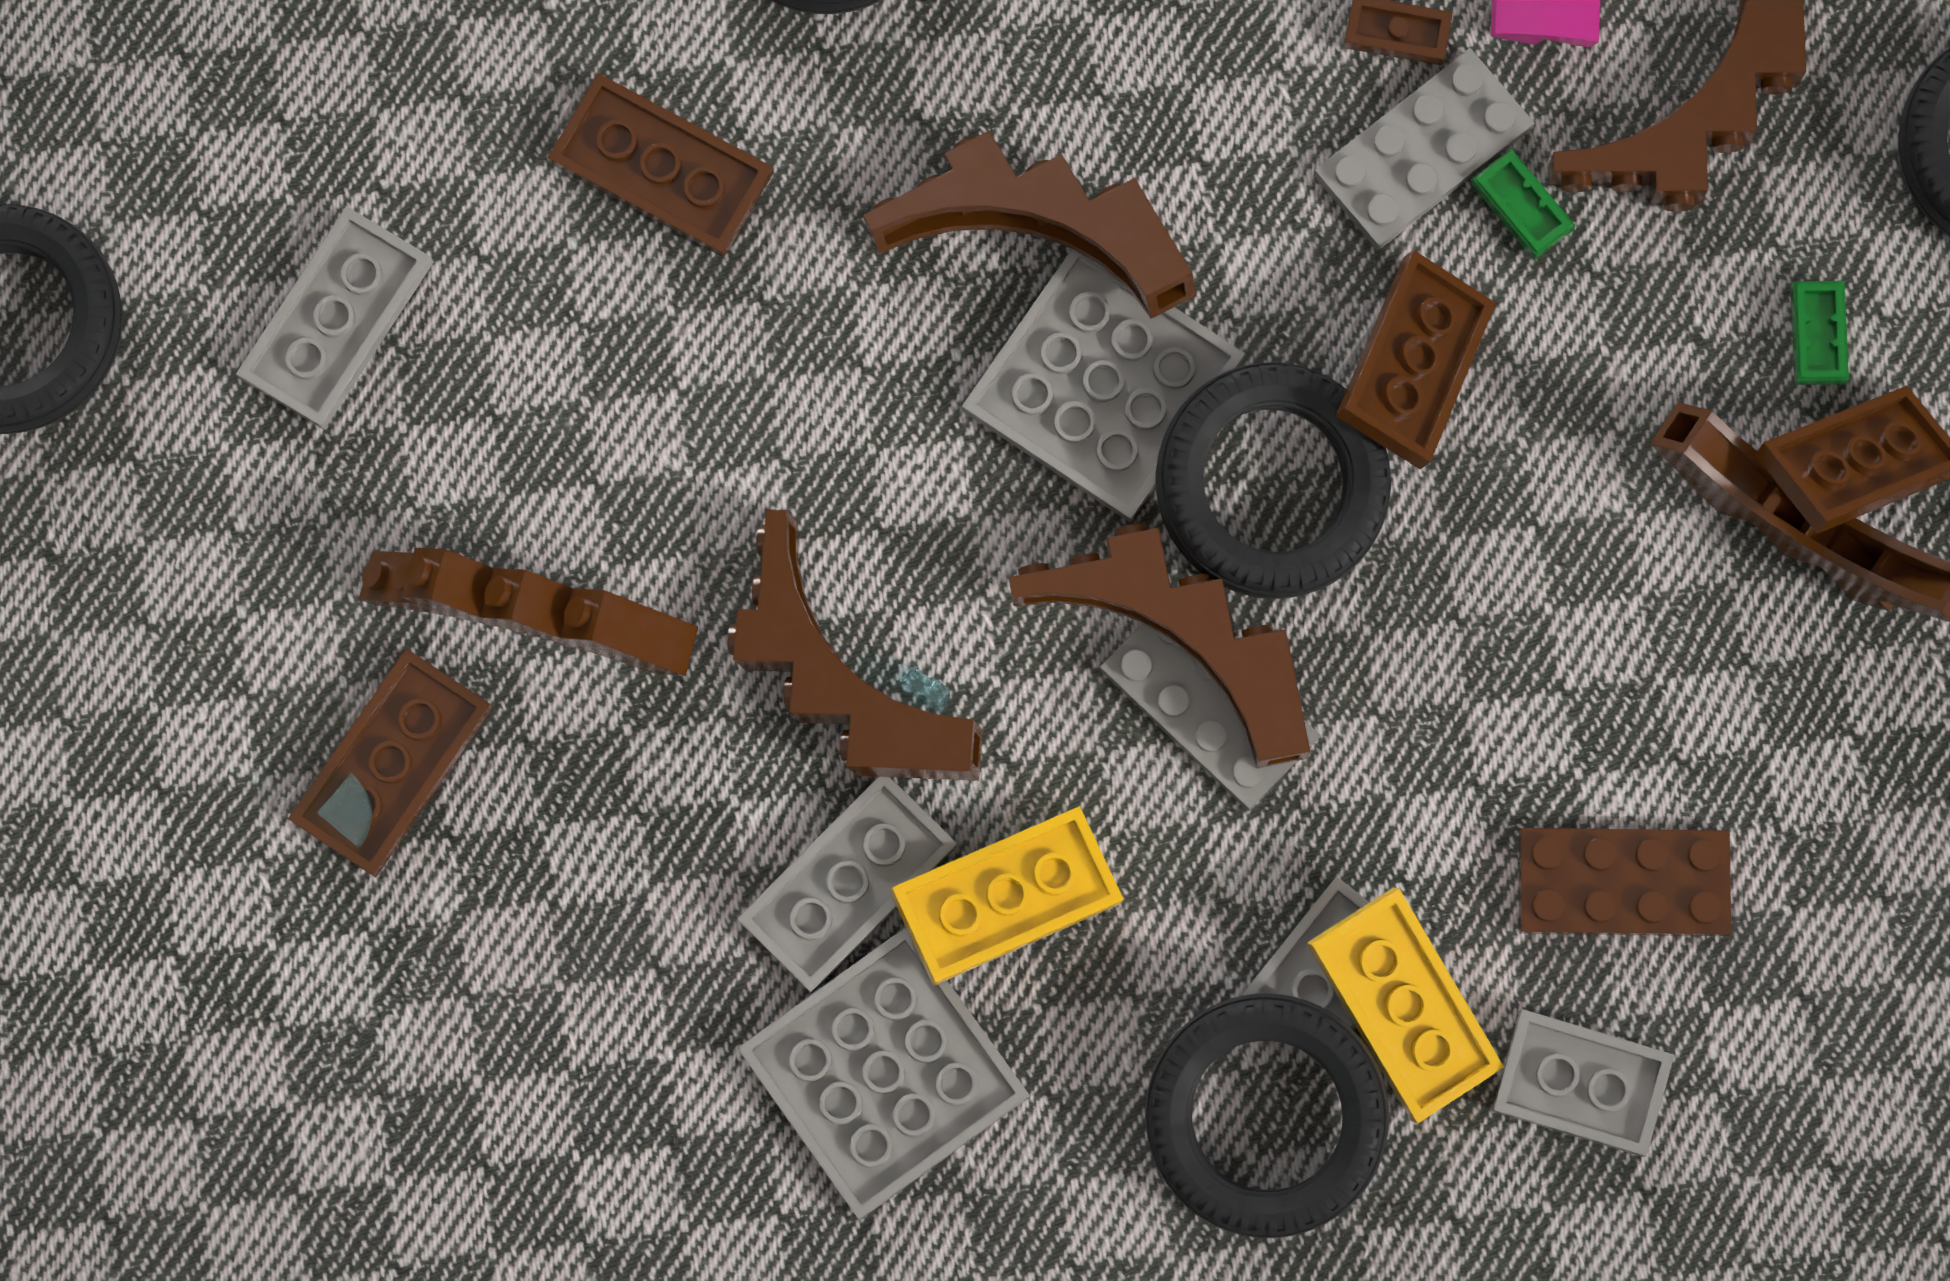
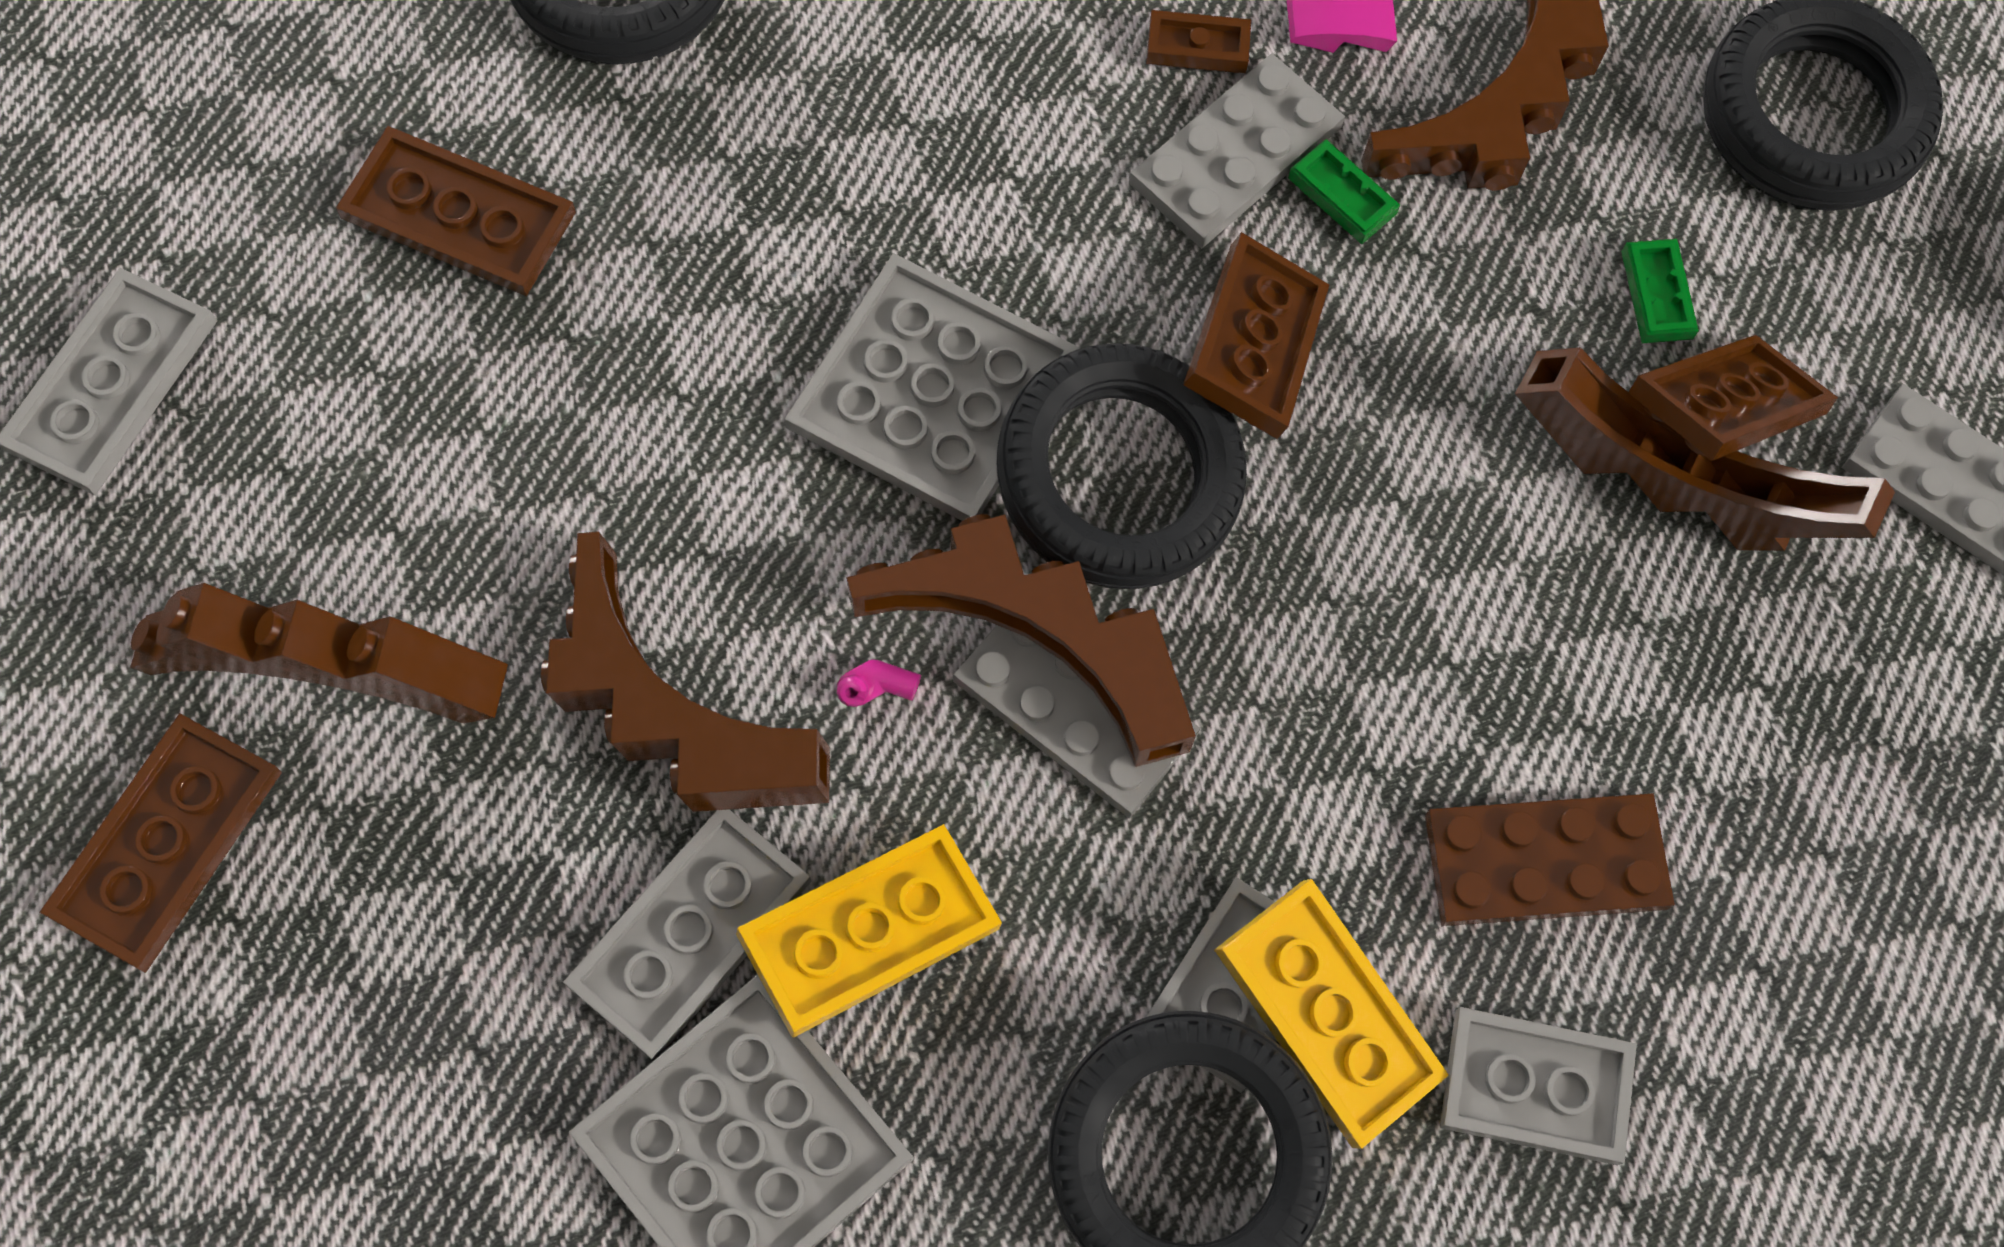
camera: 15 degrees left, 10 degrees down
(349, 810) = (109, 895): clear light blue tile -> none
(927, 689) = (766, 713): clear light blue tile -> none
(1026, 664) = (874, 679): none -> dark pink arm
(1047, 202) = (860, 213): reddish brown arch -> none

